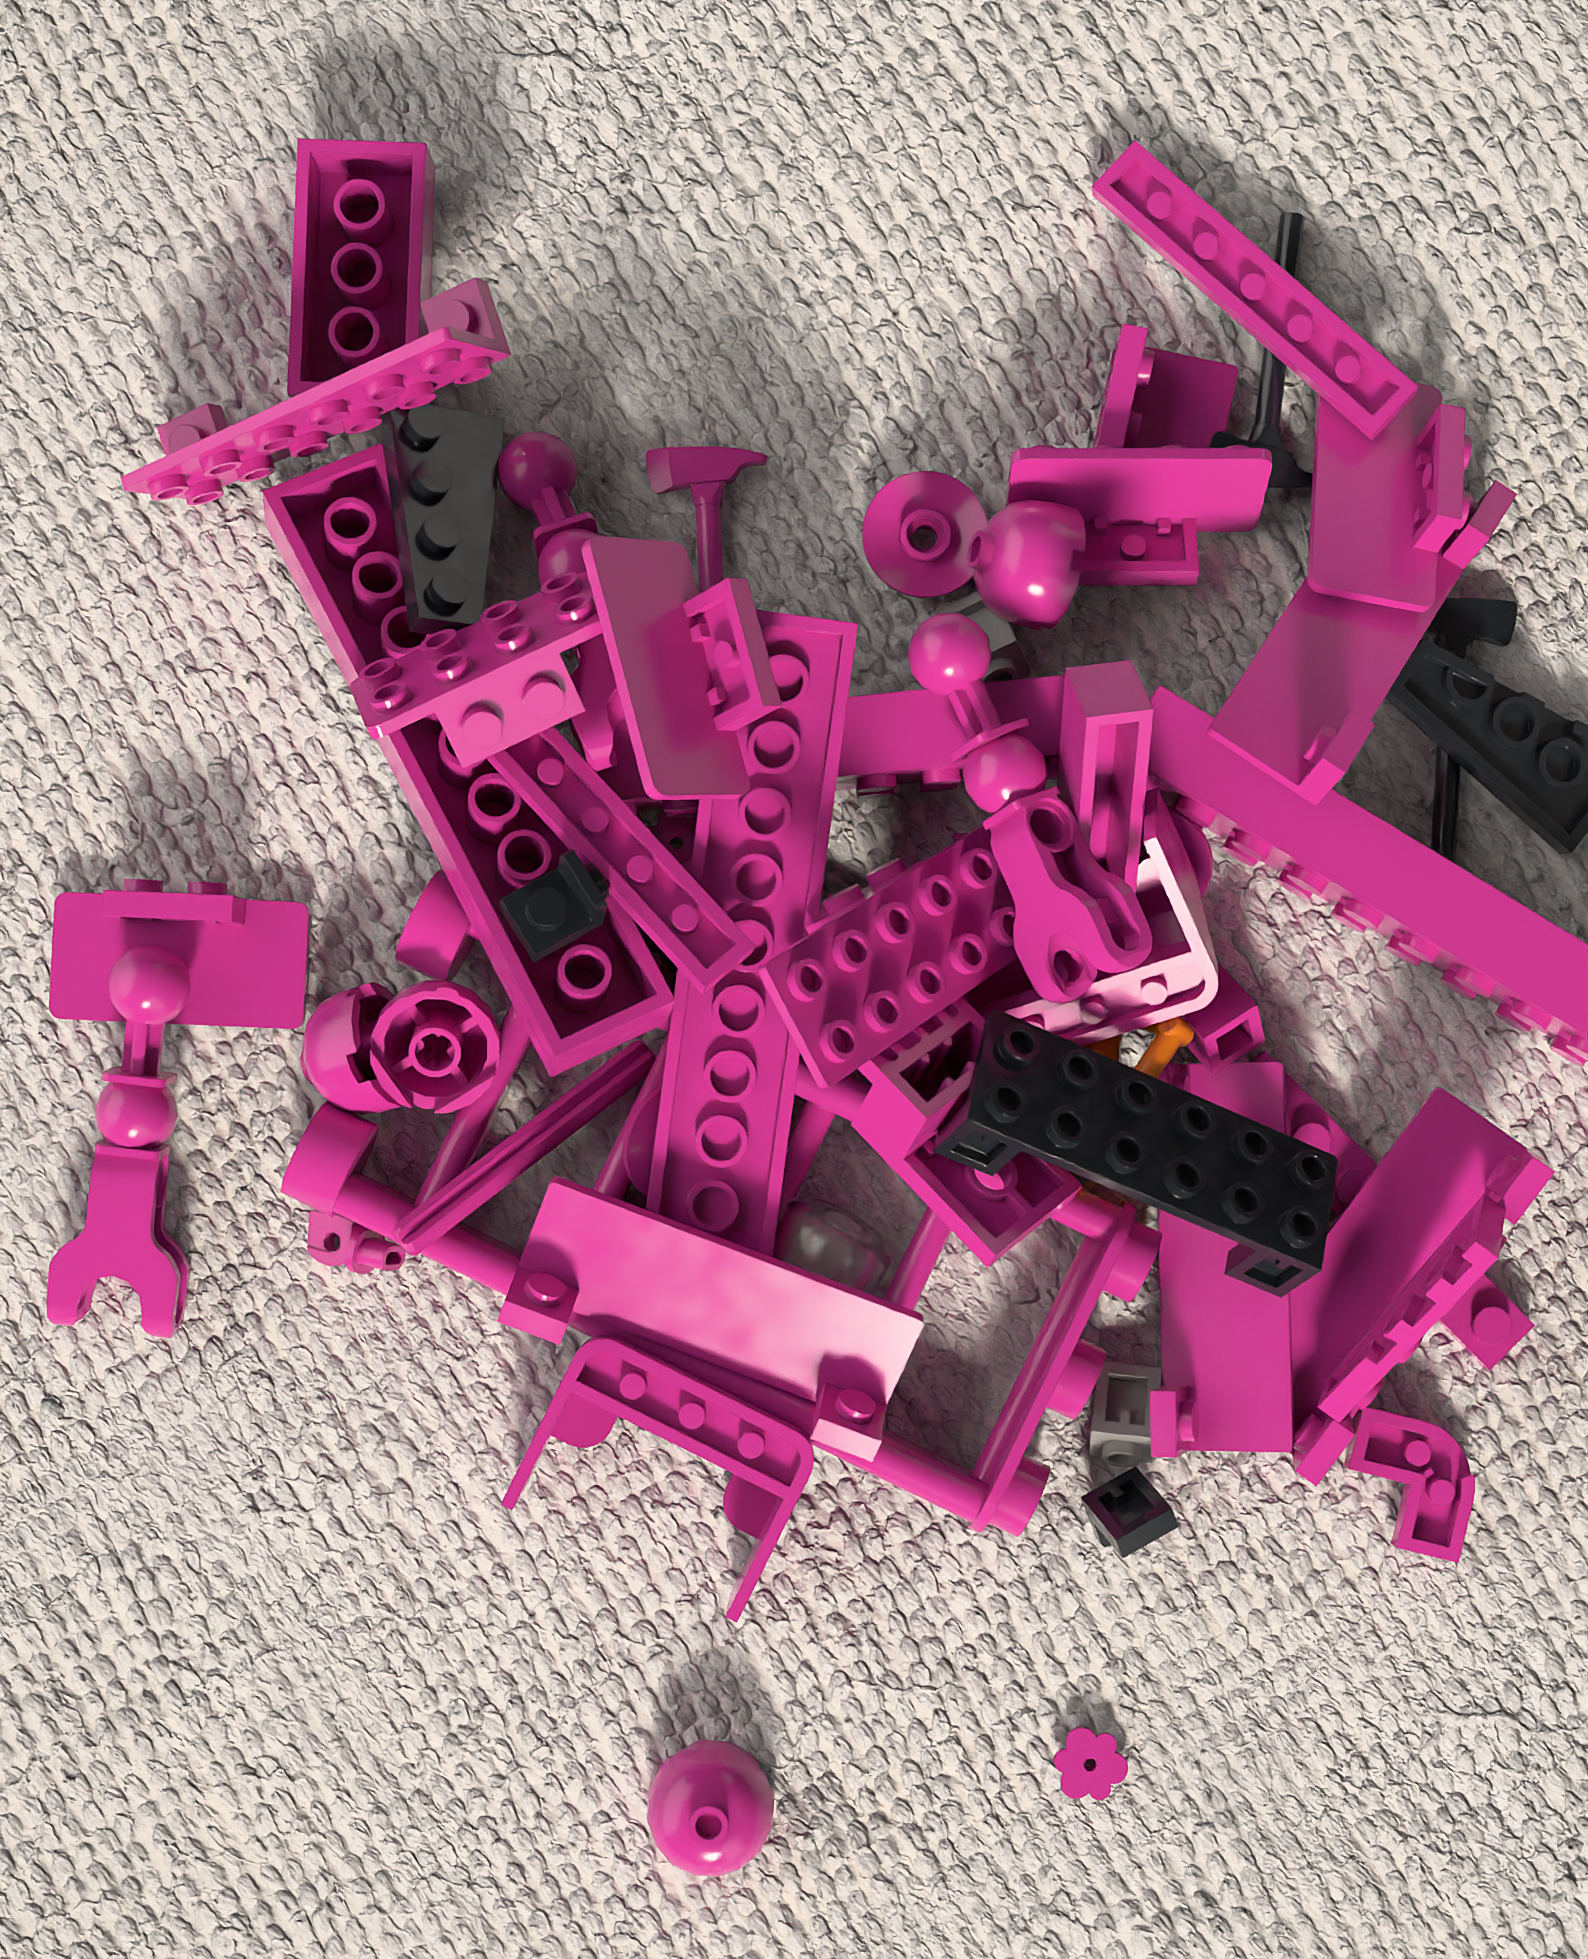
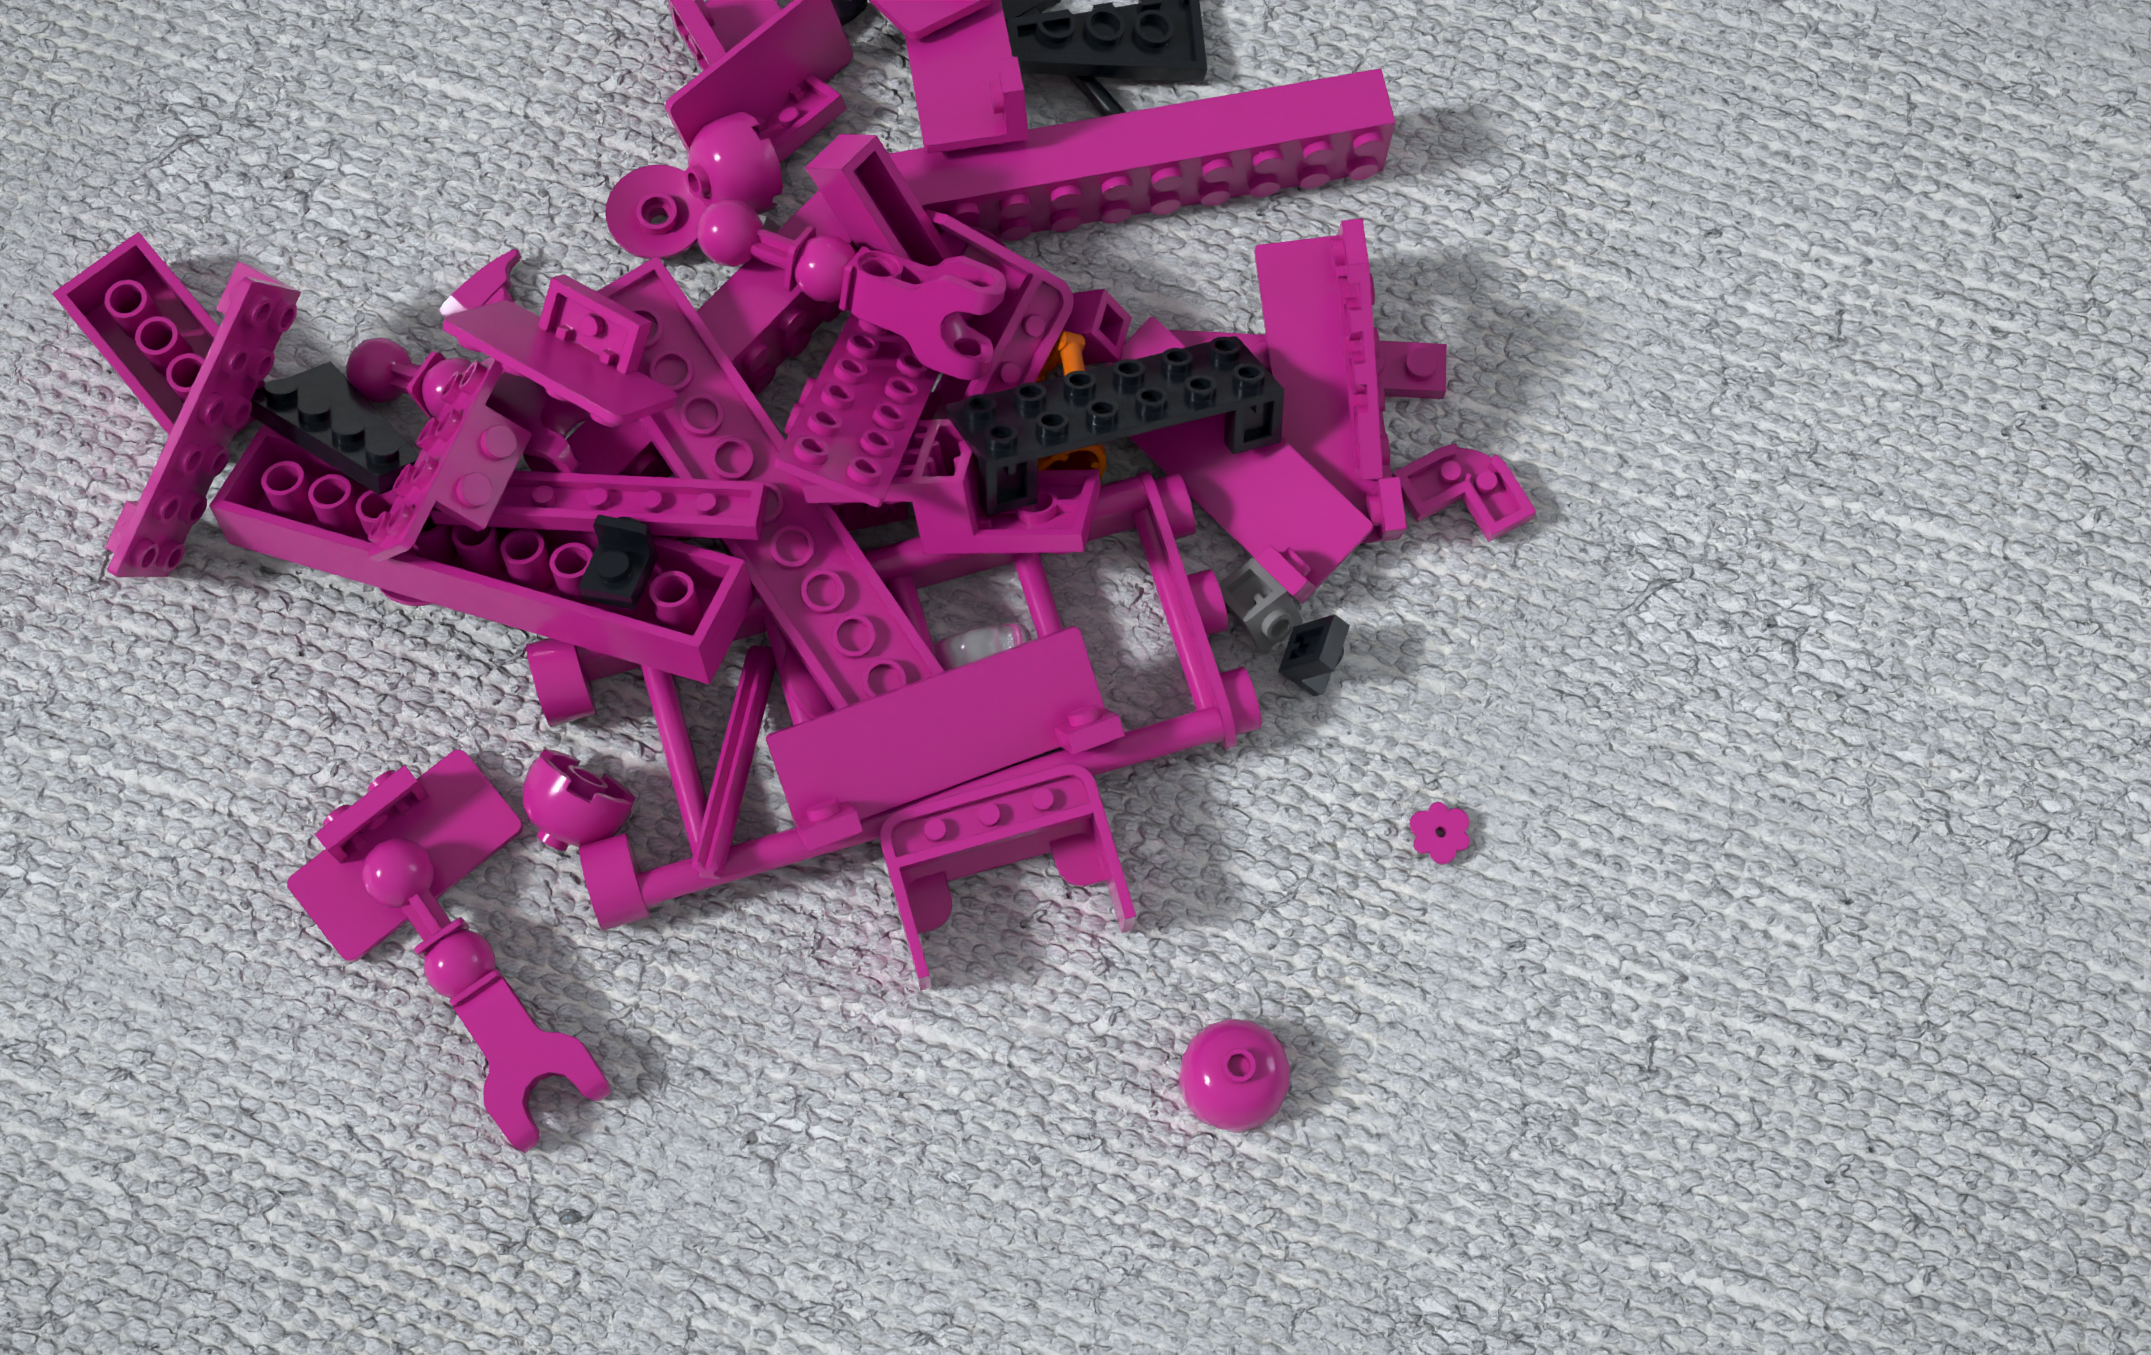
camera: 45 degrees left, 15 degrees down
(359, 1246) = (684, 925): dark pink piece -> none
(435, 1046) = (621, 743): dark pink cylinder -> none

